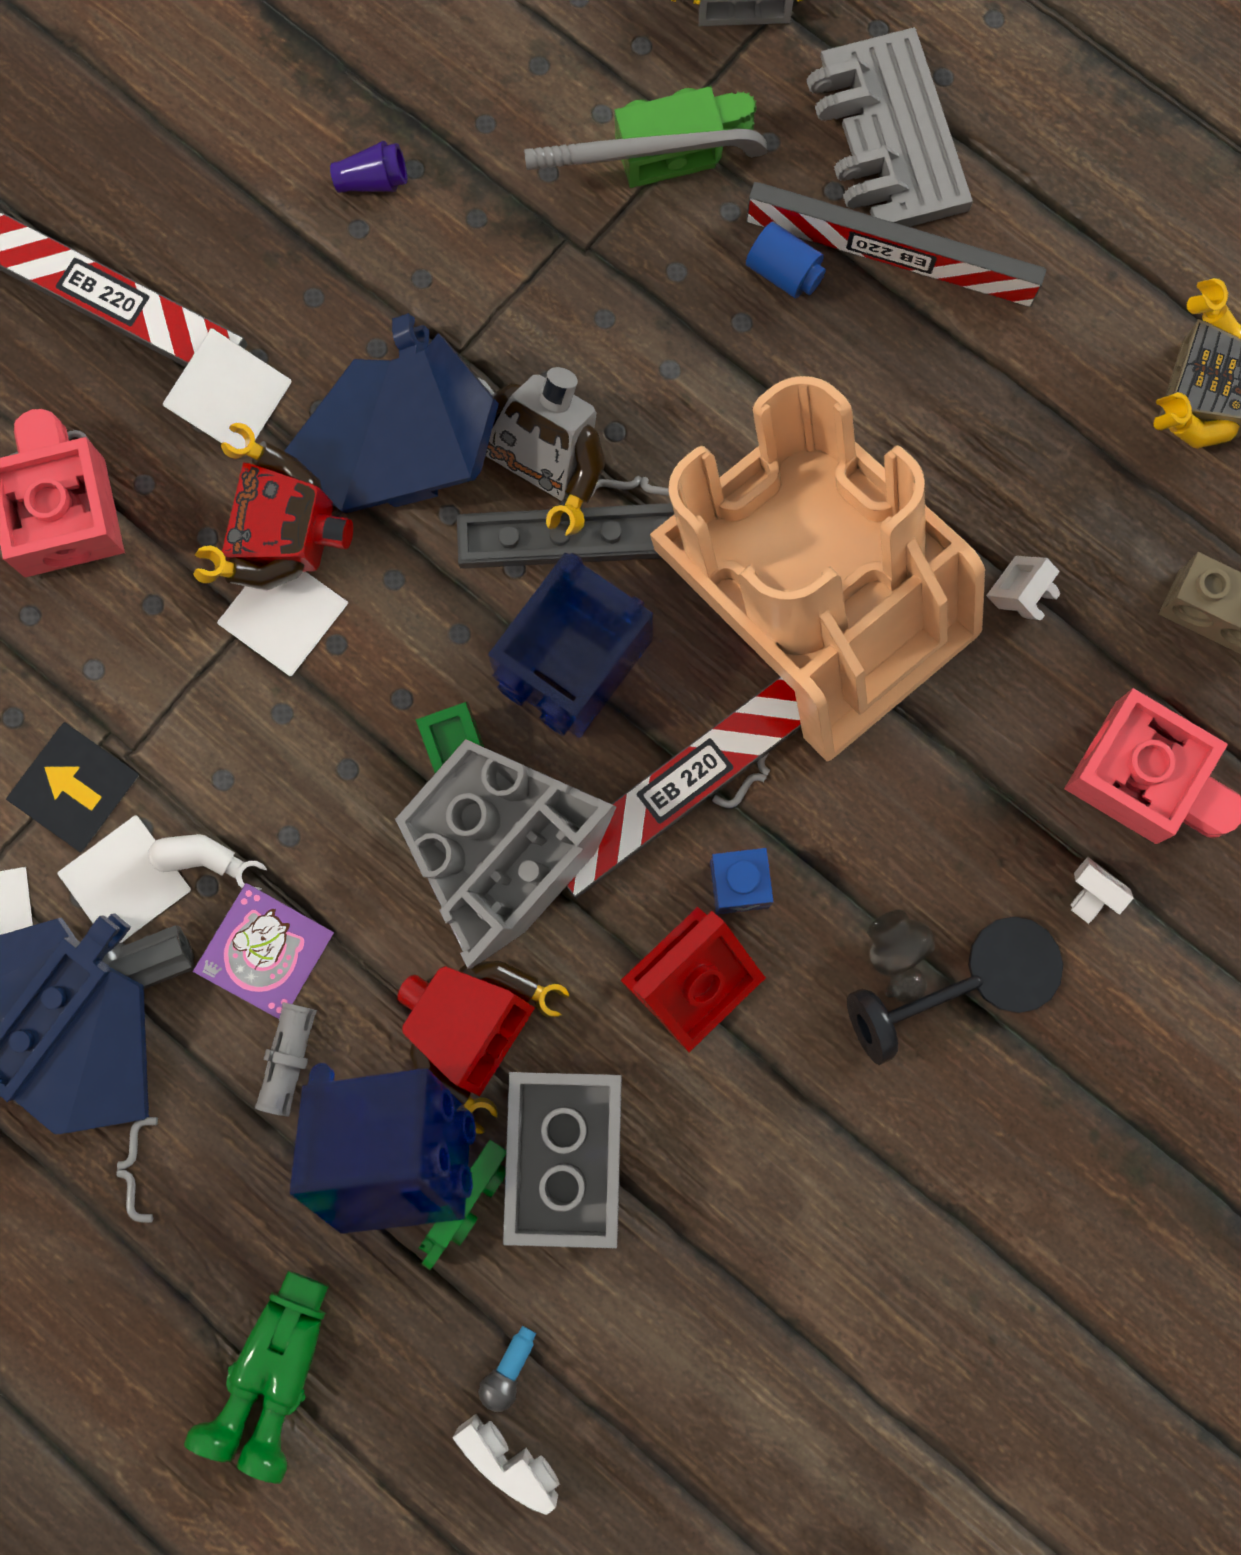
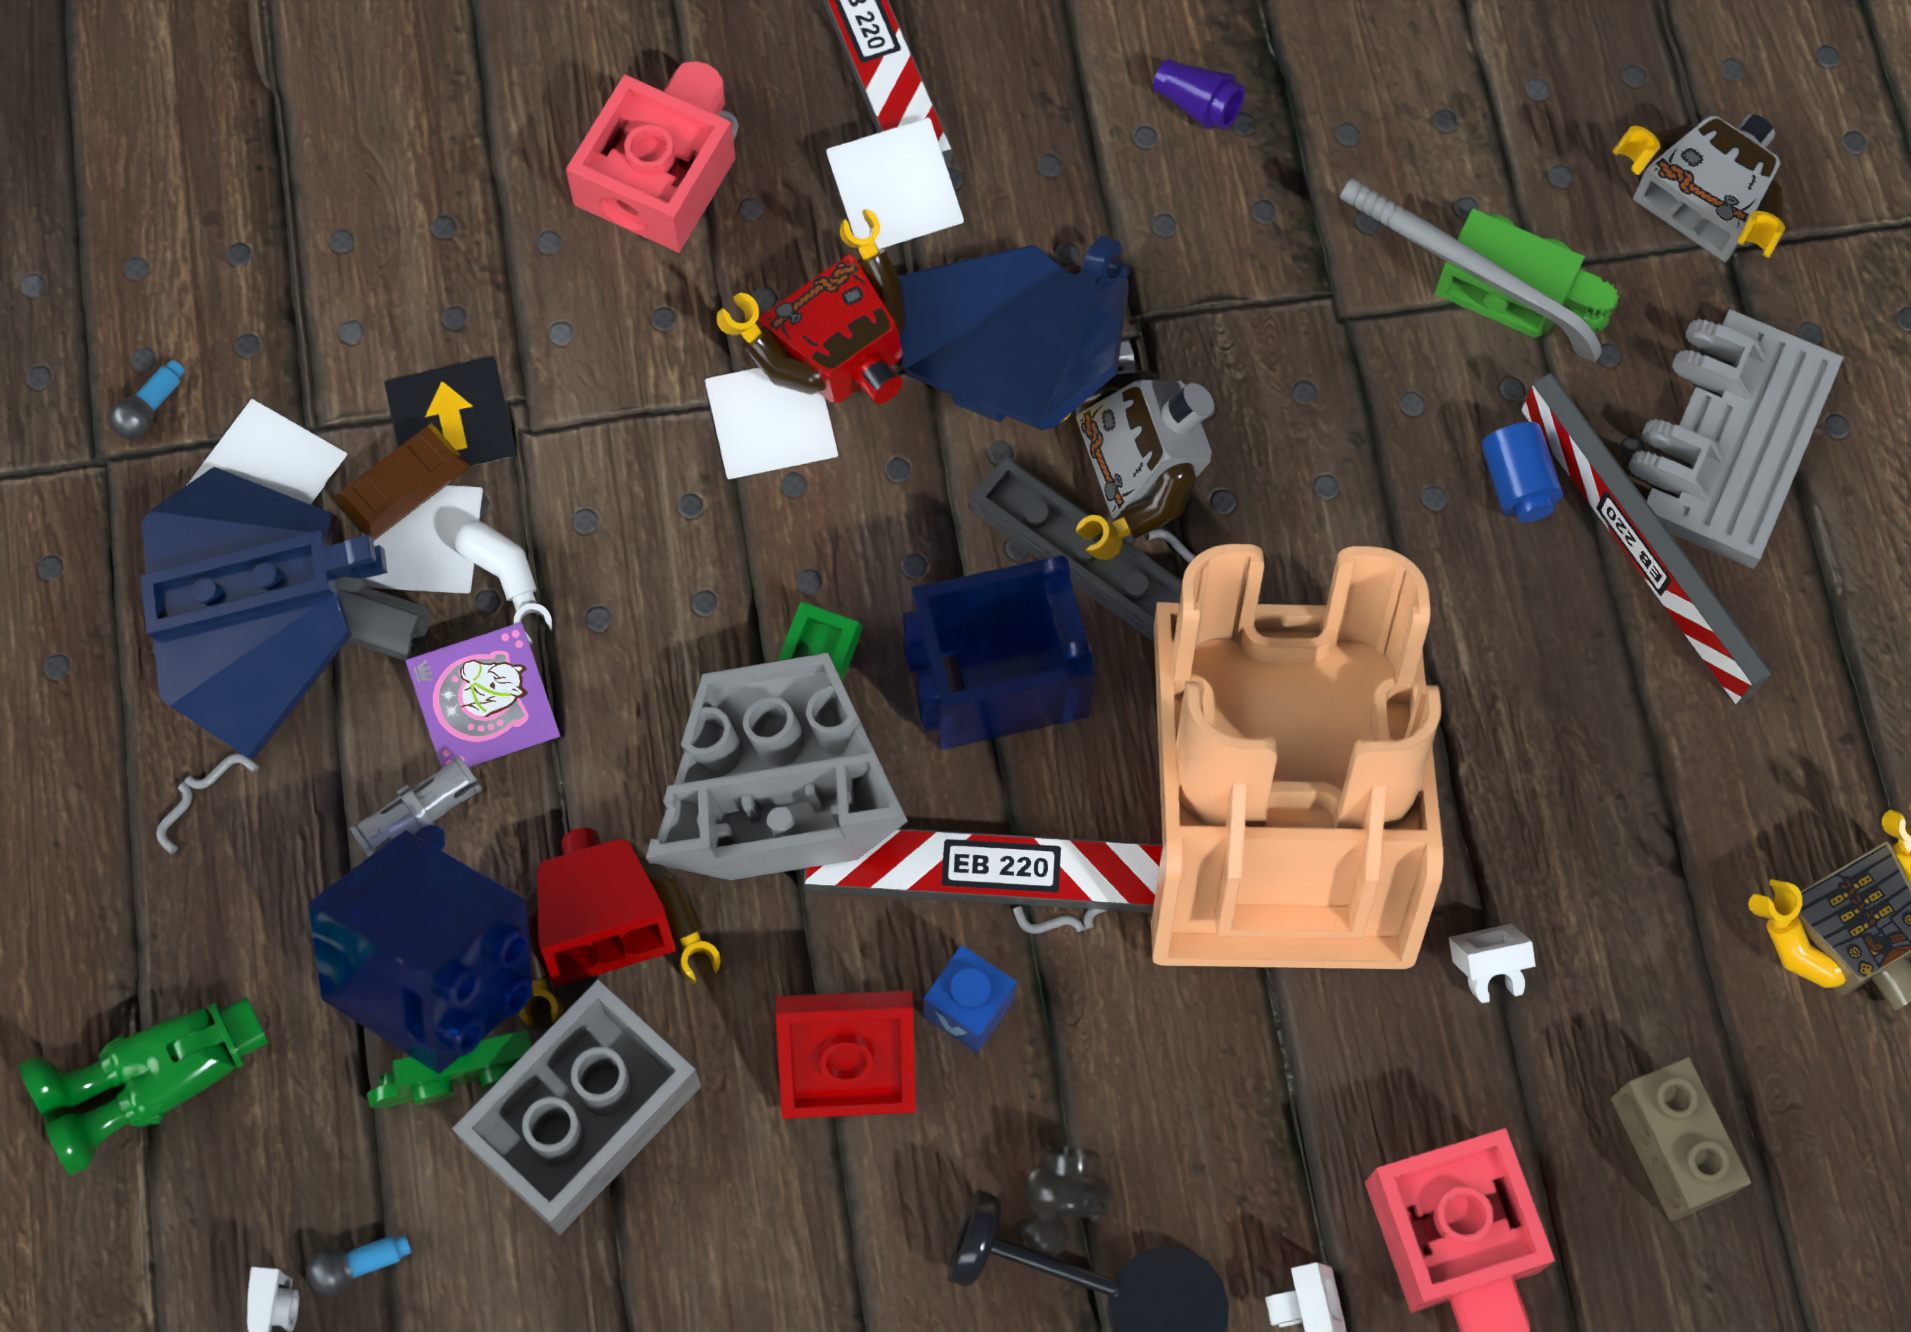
camera: 35 degrees right, 10 degrees down
(80, 856) = (401, 482): none -> reddish brown tile

